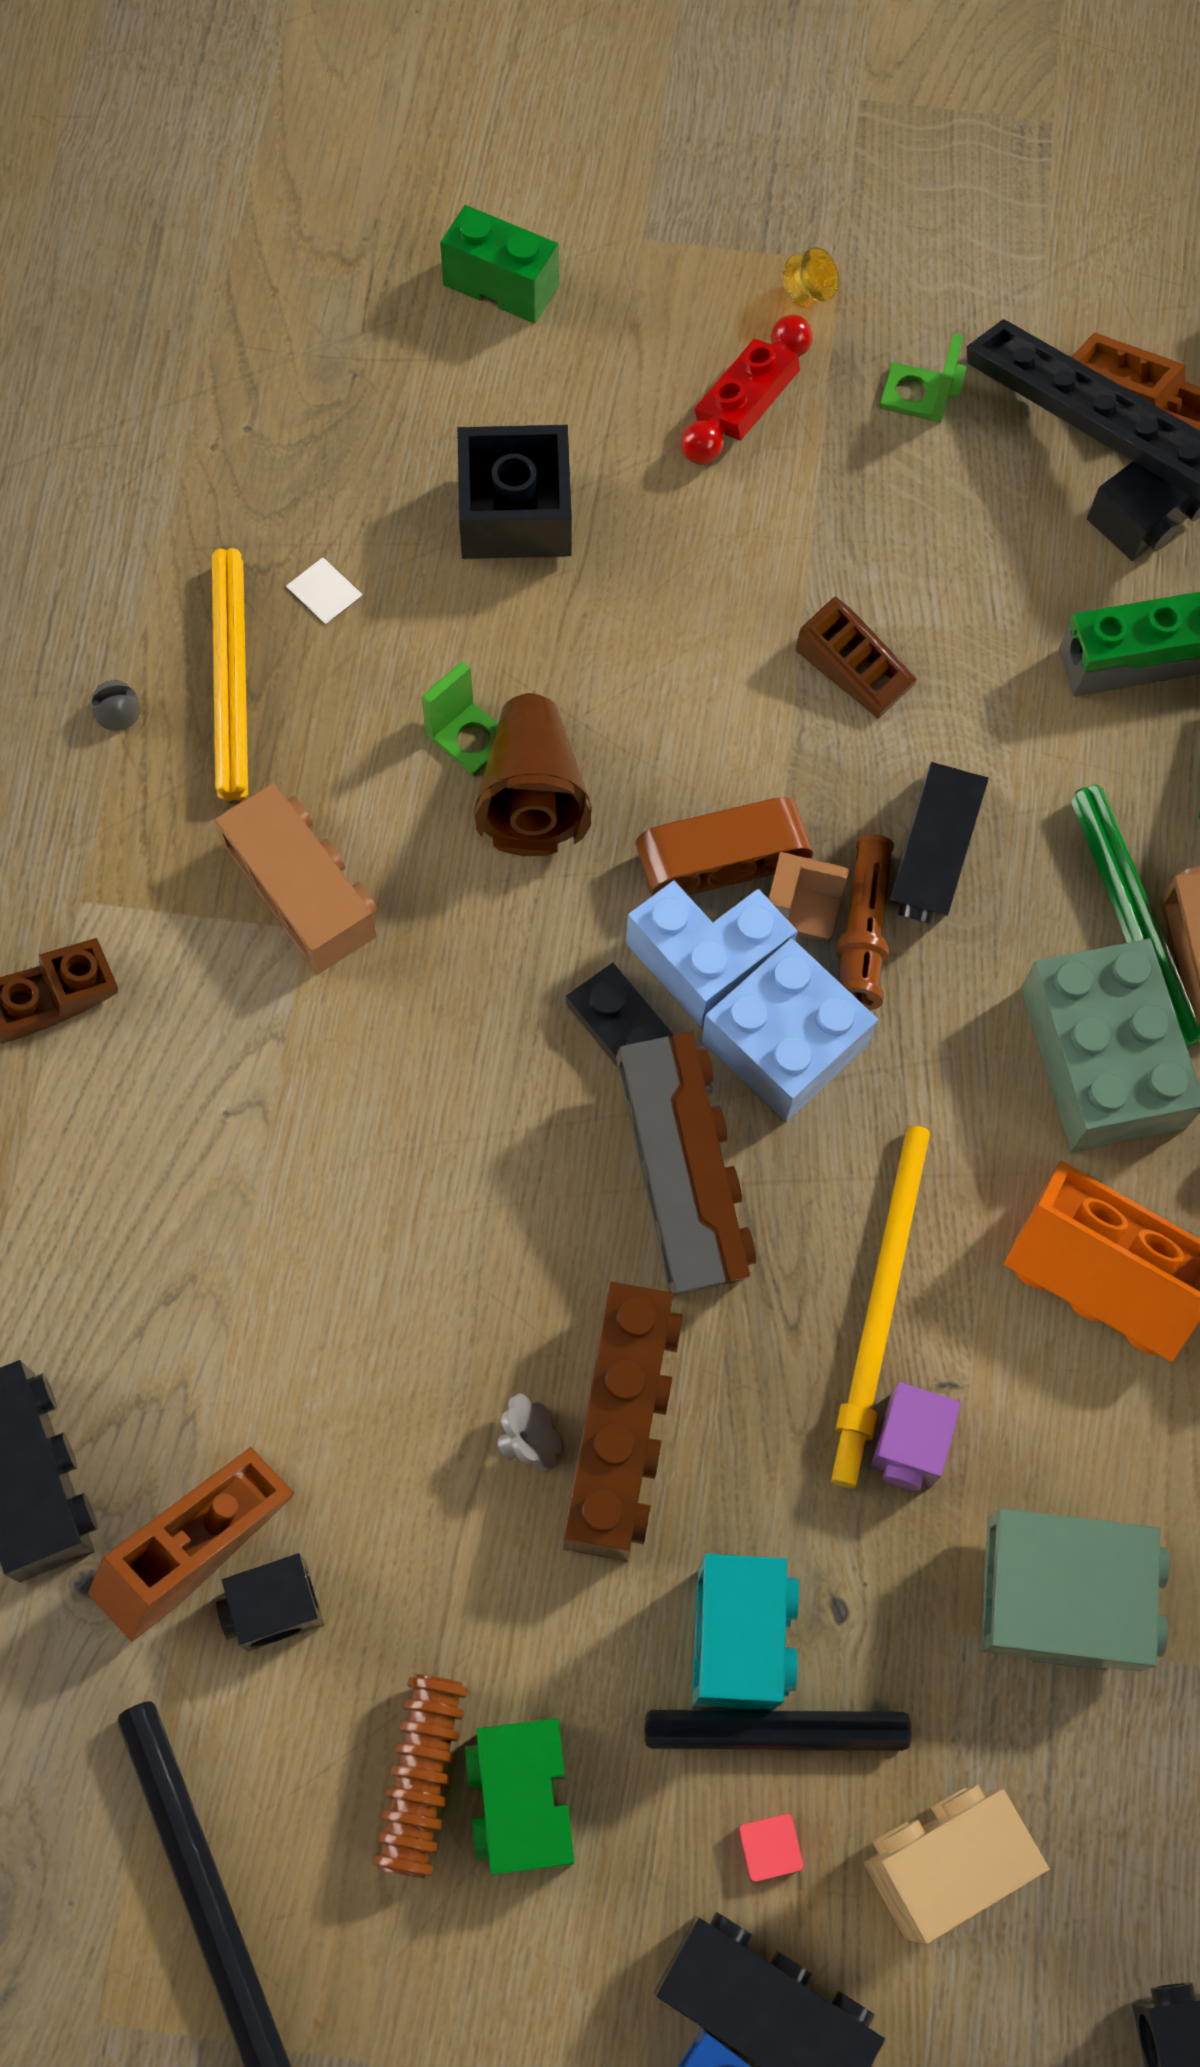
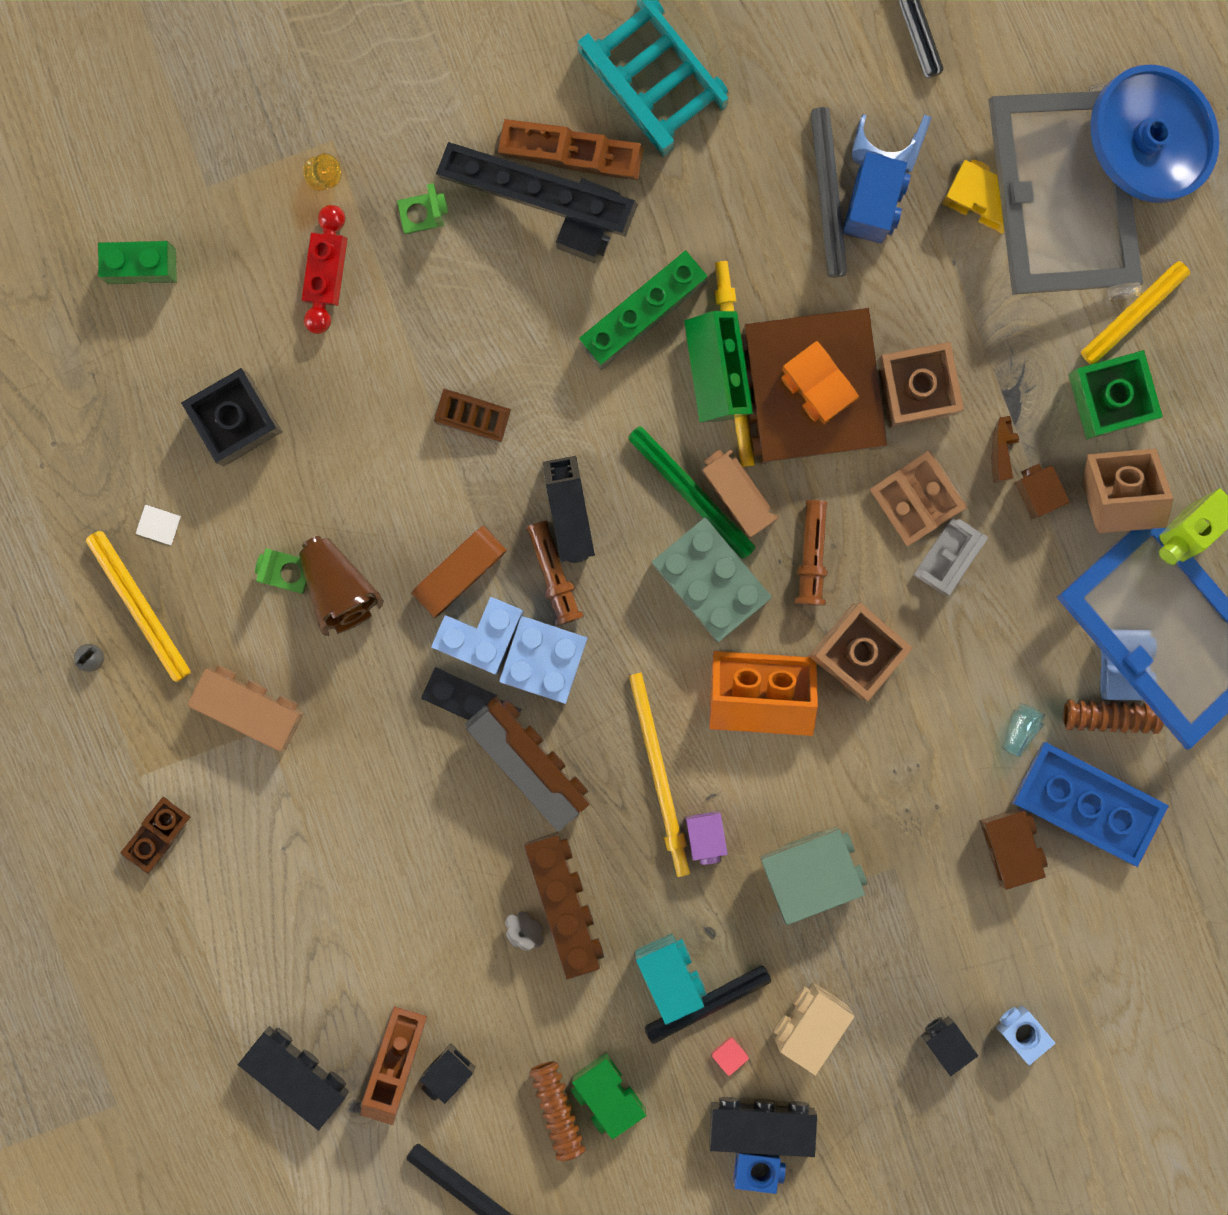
camera: 25 degrees left, 20 degrees up
(808, 895) = (515, 578): medium nougat panel -> none

